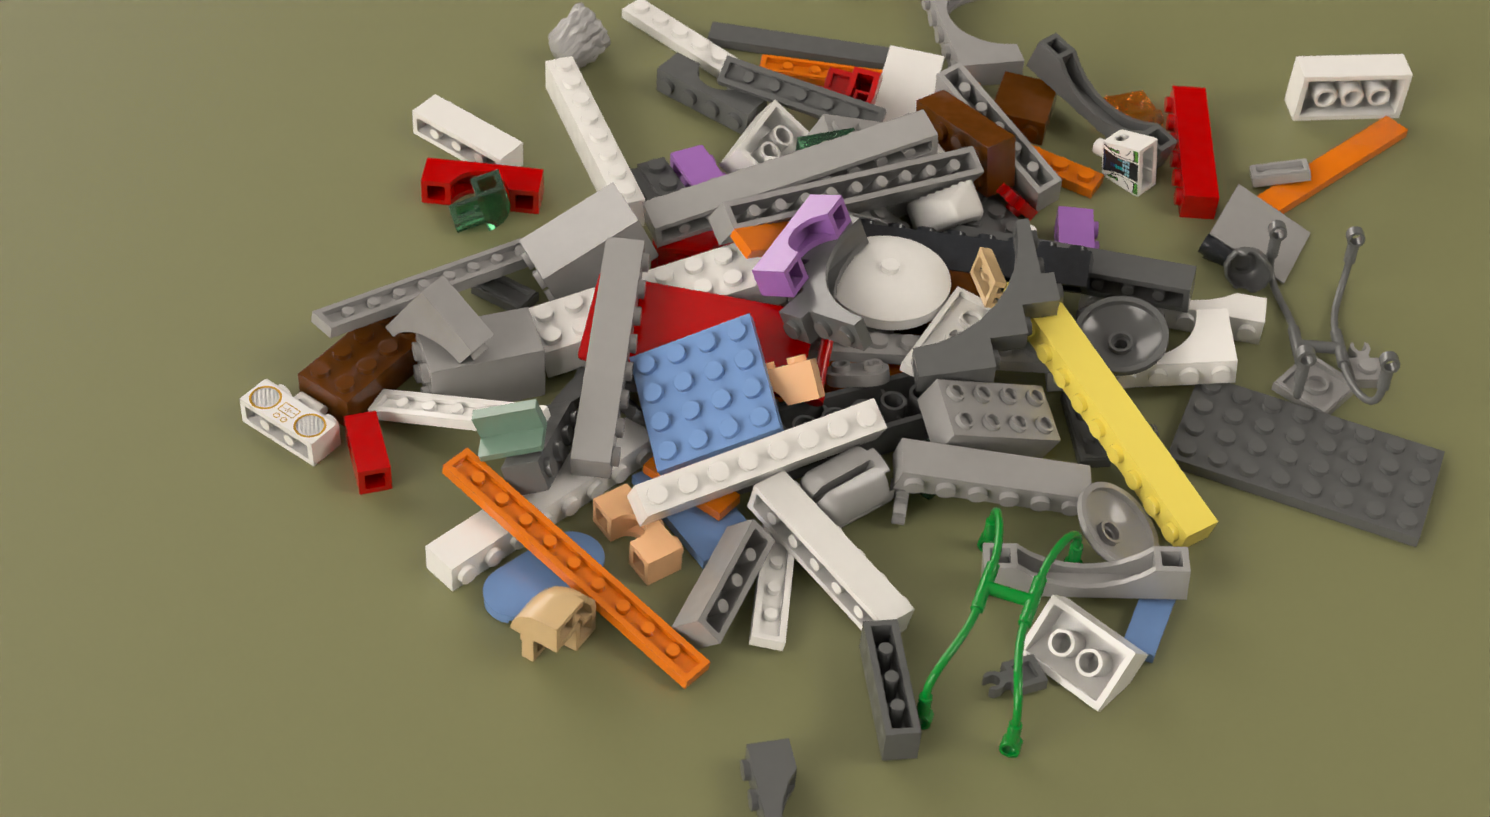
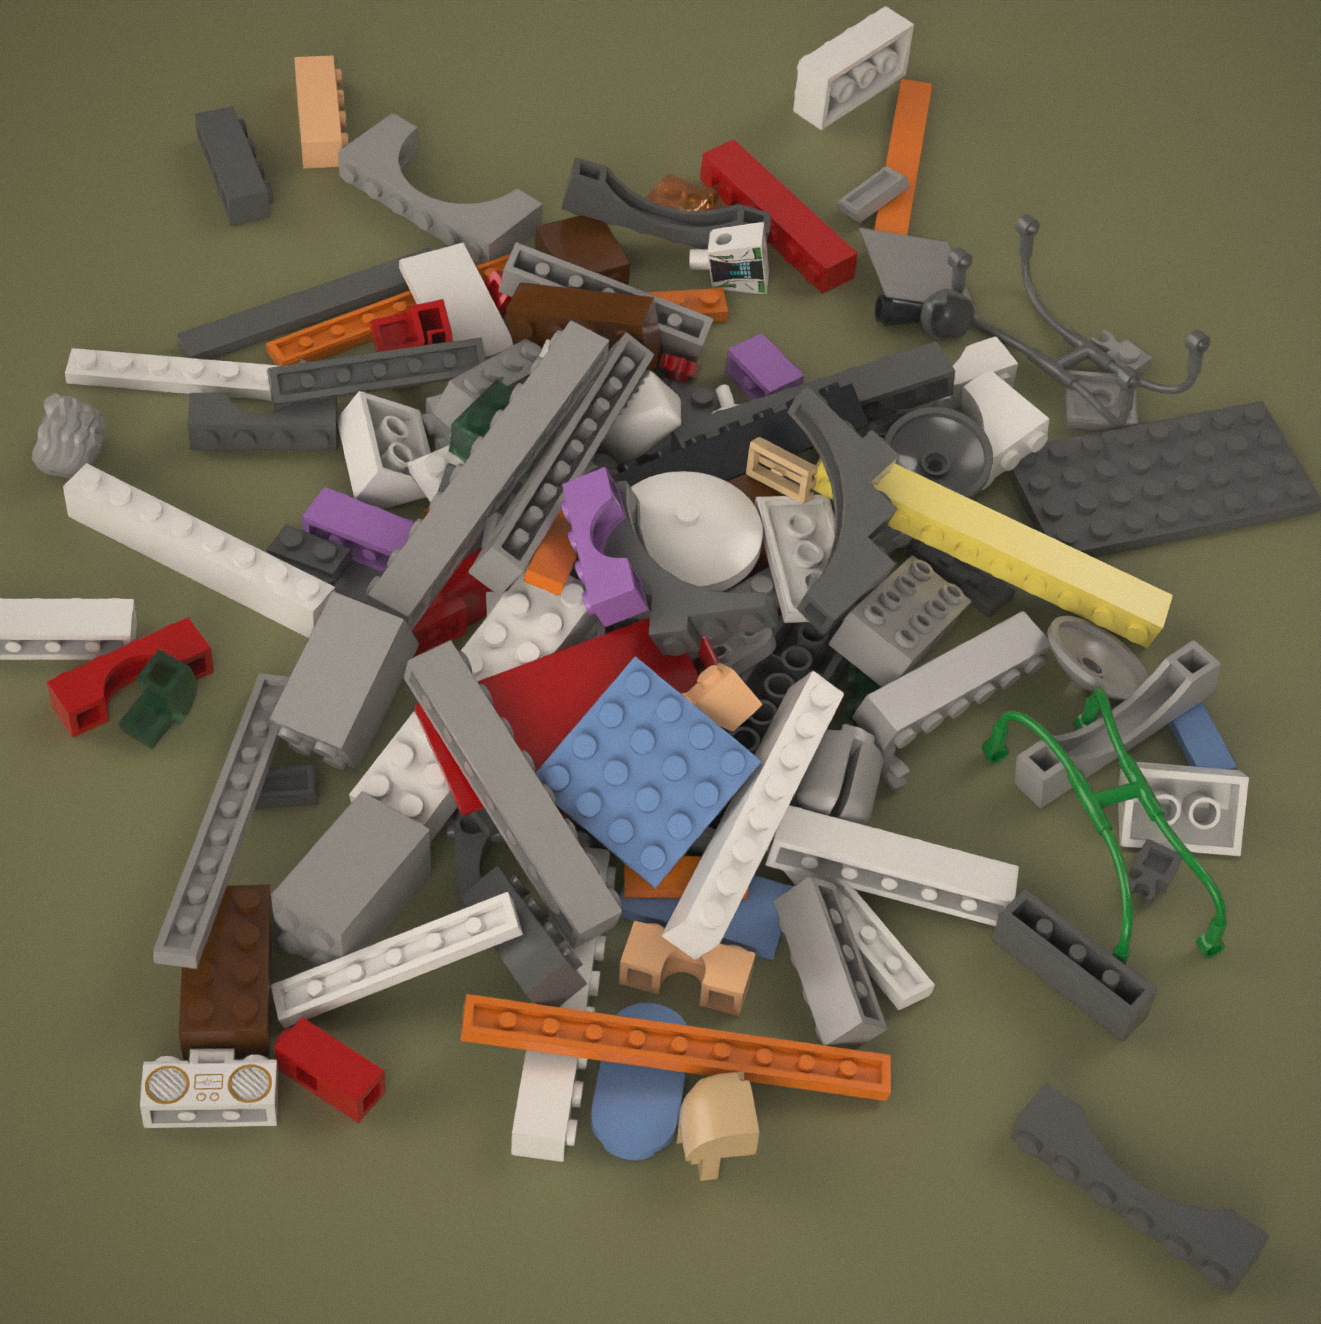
camera: 40 degrees left, 5 degrees up
(444, 318) = (306, 863): light grey arch -> none
(510, 429) = (506, 947): sand green panel -> none

